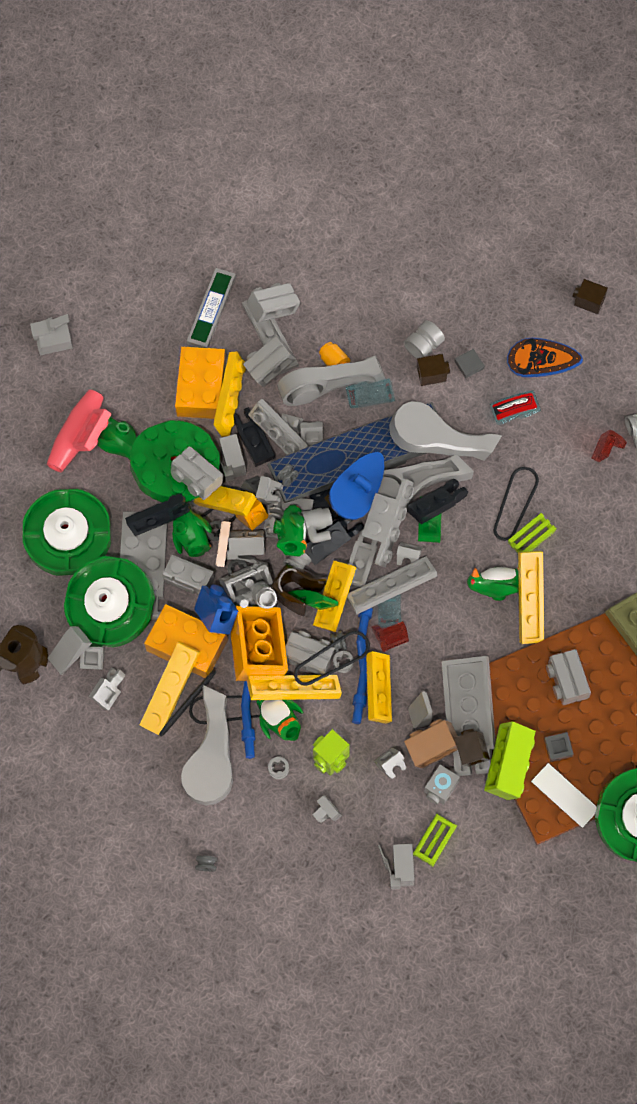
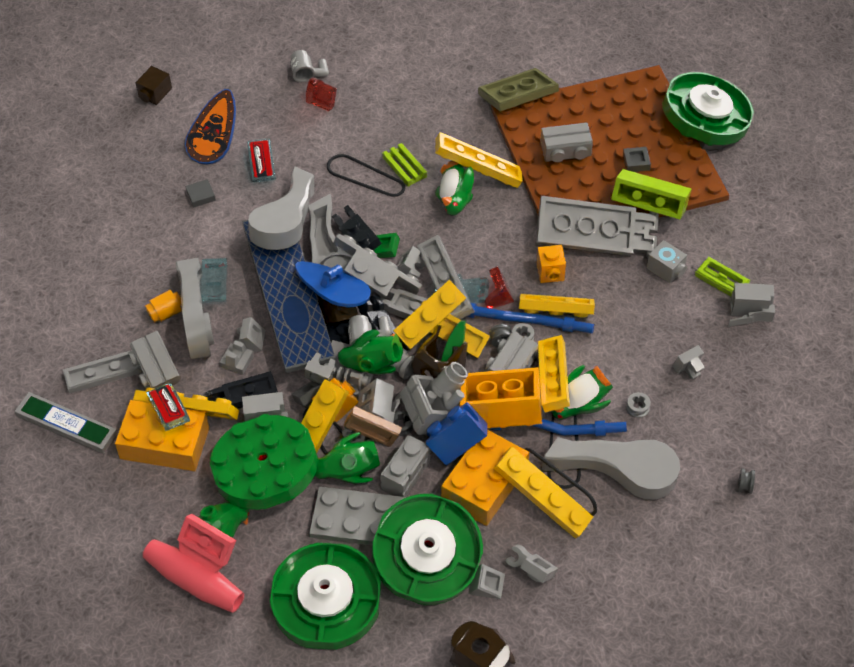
camera: 85 degrees left, 15 degrees down
(52, 335) = (53, 593): light grey piece -> none
(69, 649) = (481, 599): light grey slope -> none
(158, 515) = (329, 481): black hinge -> none
(196, 473) = (292, 424): light grey brick -> none
(211, 376) = (168, 406): none -> slope
(273, 302) = (80, 352): light grey brick -> none
(276, 428) = (242, 362): light grey tile -> none
(287, 475) = (308, 345): dark grey bush -> none
(330, 753) = (631, 345): lime brick -> none
(336, 669) = (516, 339): black piece -> none
(338, 573) = (429, 314): none -> yellow plate
(389, 760) = (638, 303): tile -> none
(420, 711) = (589, 264): light grey slope -> none
(421, 677) = (551, 264): none -> light orange brick
(424, 340) = (166, 222): light grey wheel -> none
(432, 369) = (201, 221): dark brown brick -> none
(432, 744) = (625, 259): medium nougat brick -> none
(472, 747) = (636, 221): dark brown brick -> none
(565, 795) = (684, 164): white sticker -> none

